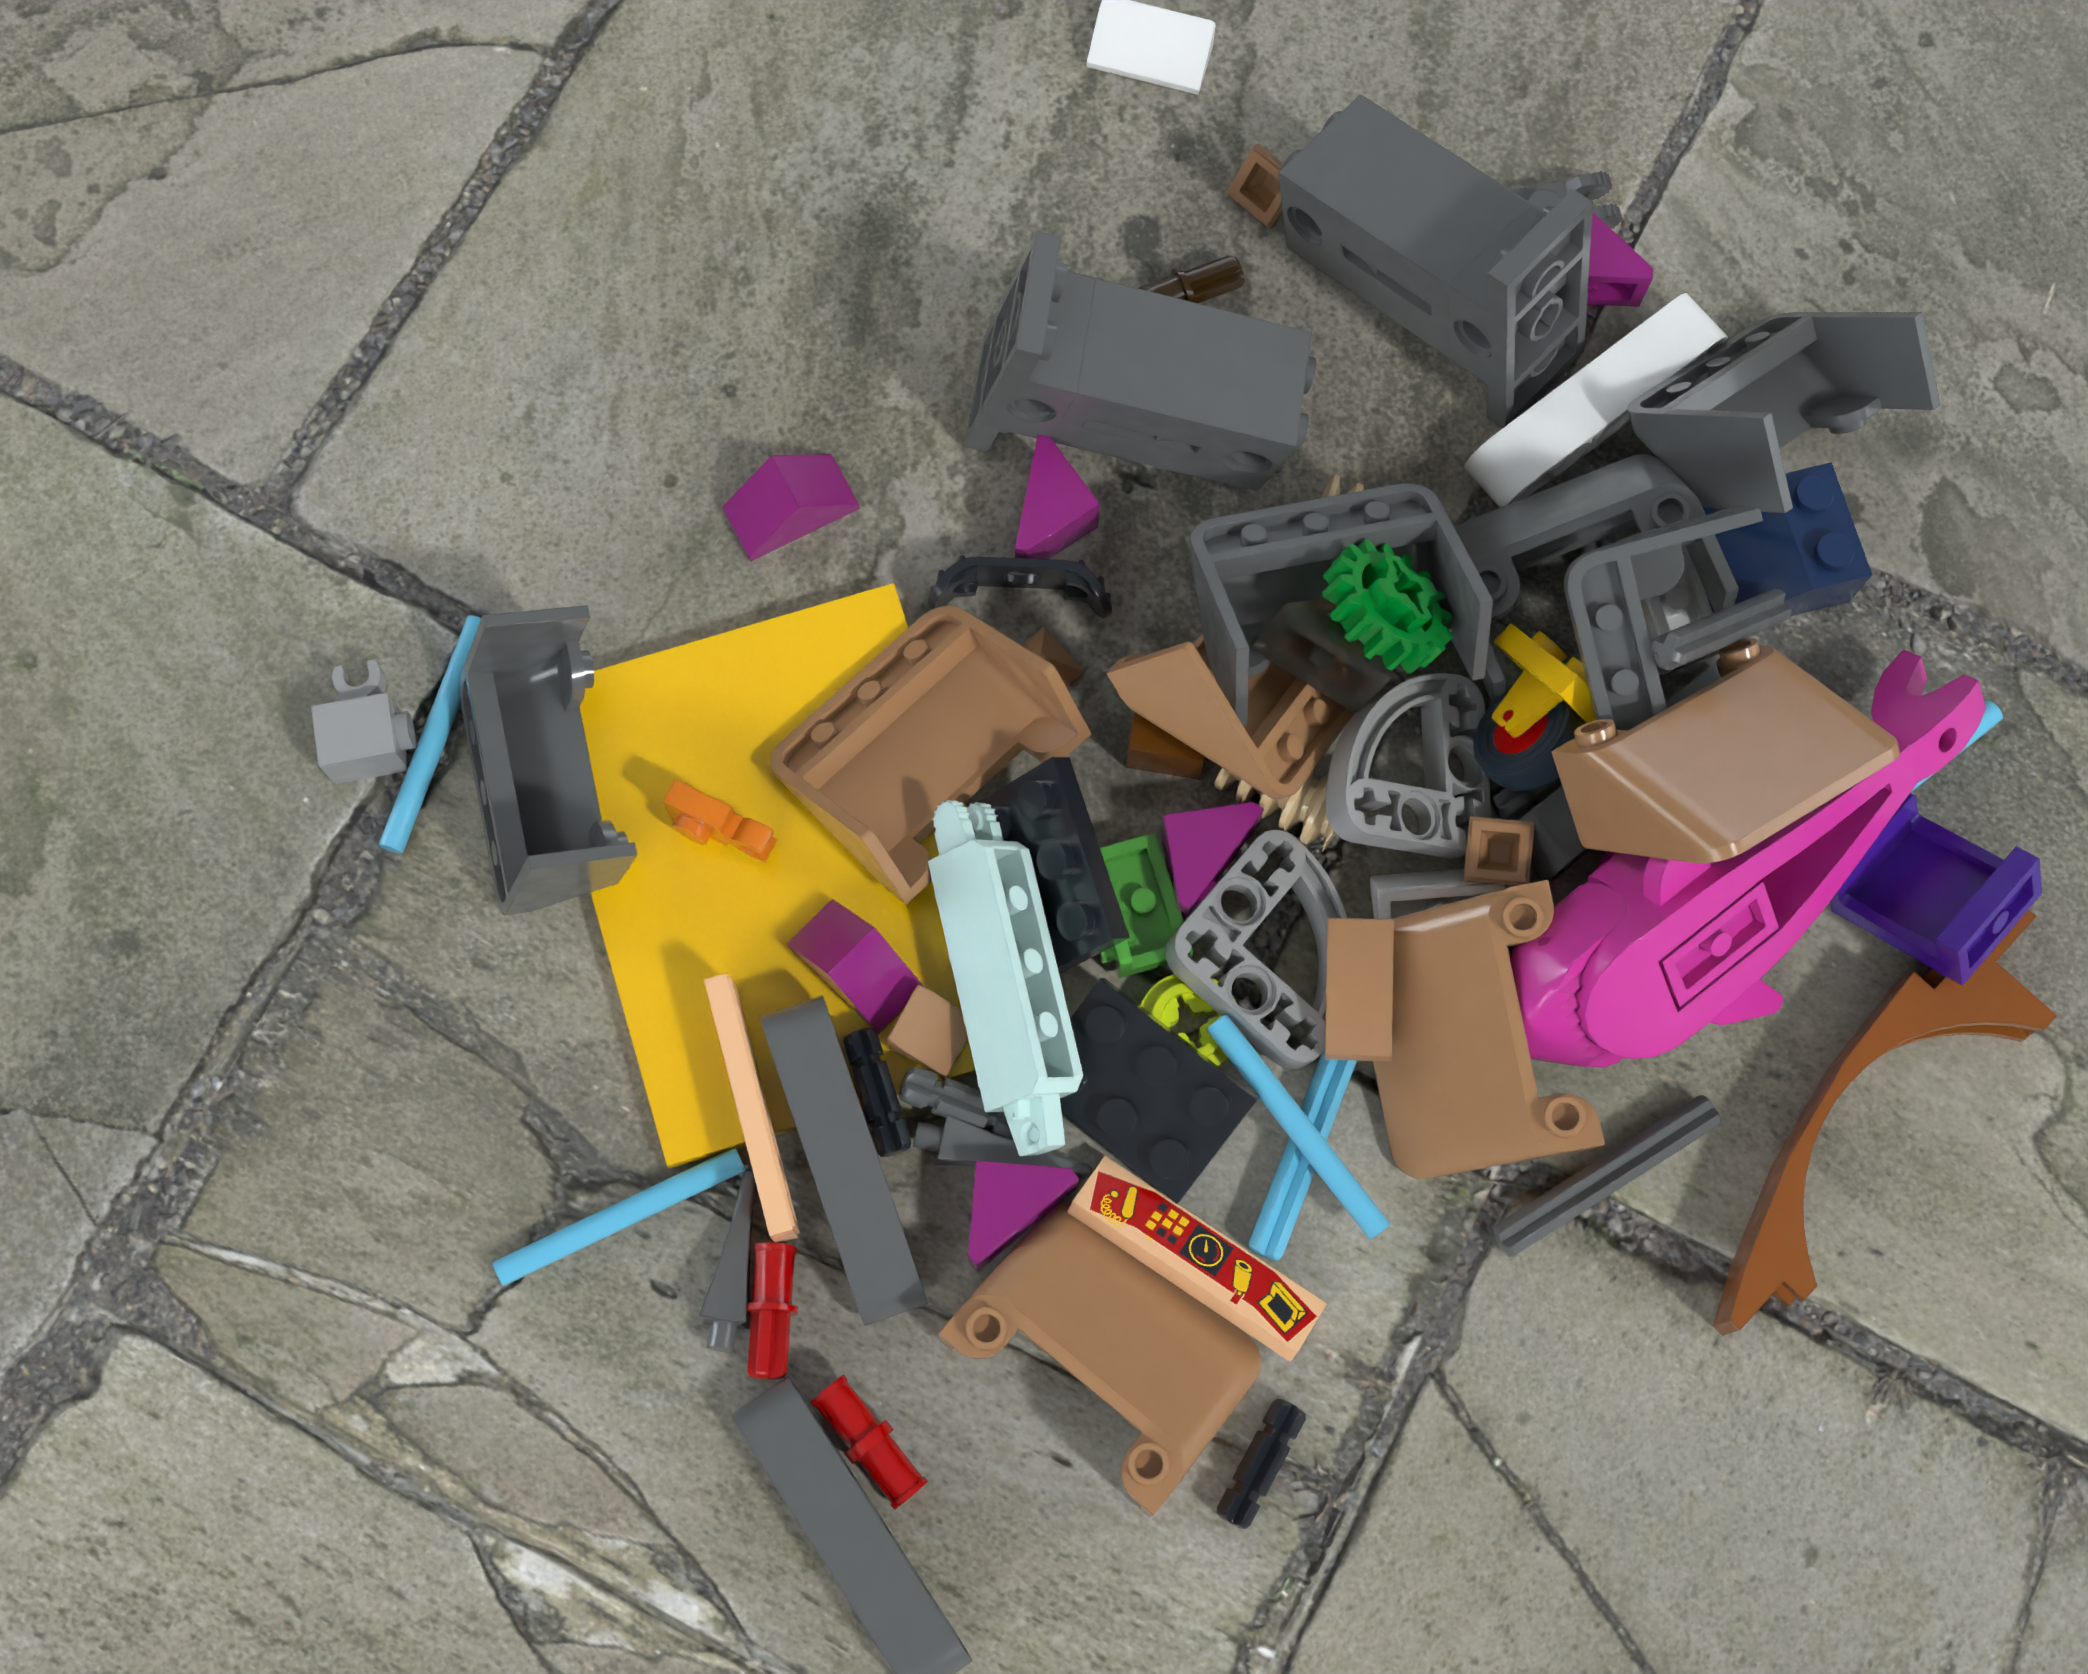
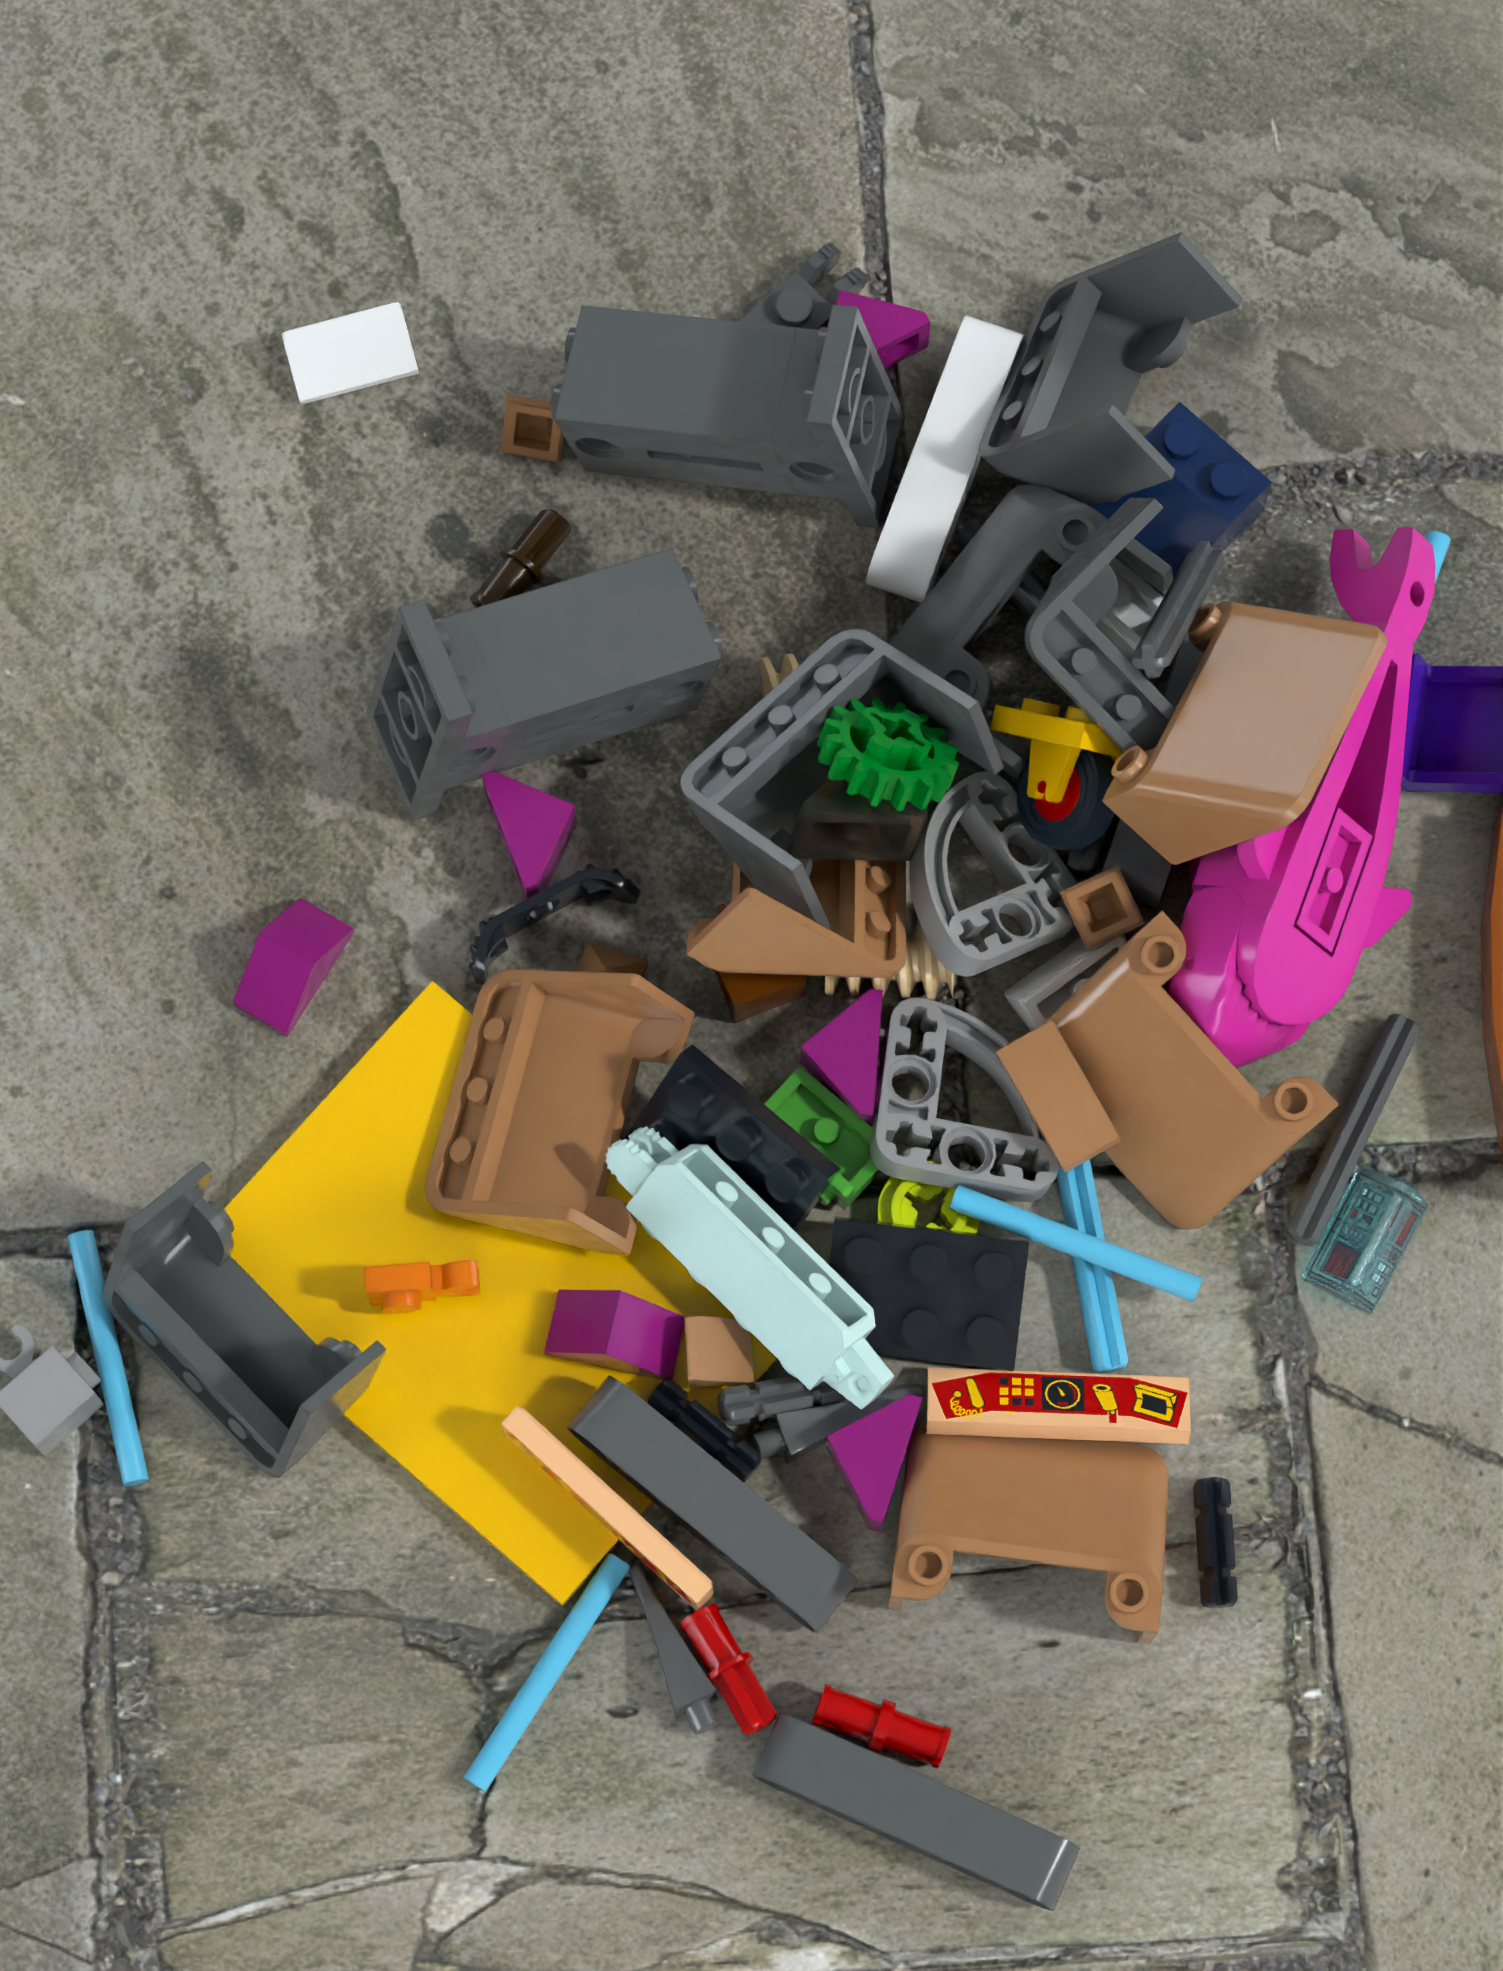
camera: 30 degrees left, 0 degrees up
(1559, 1278) = (1366, 1239): none -> clear light blue slope

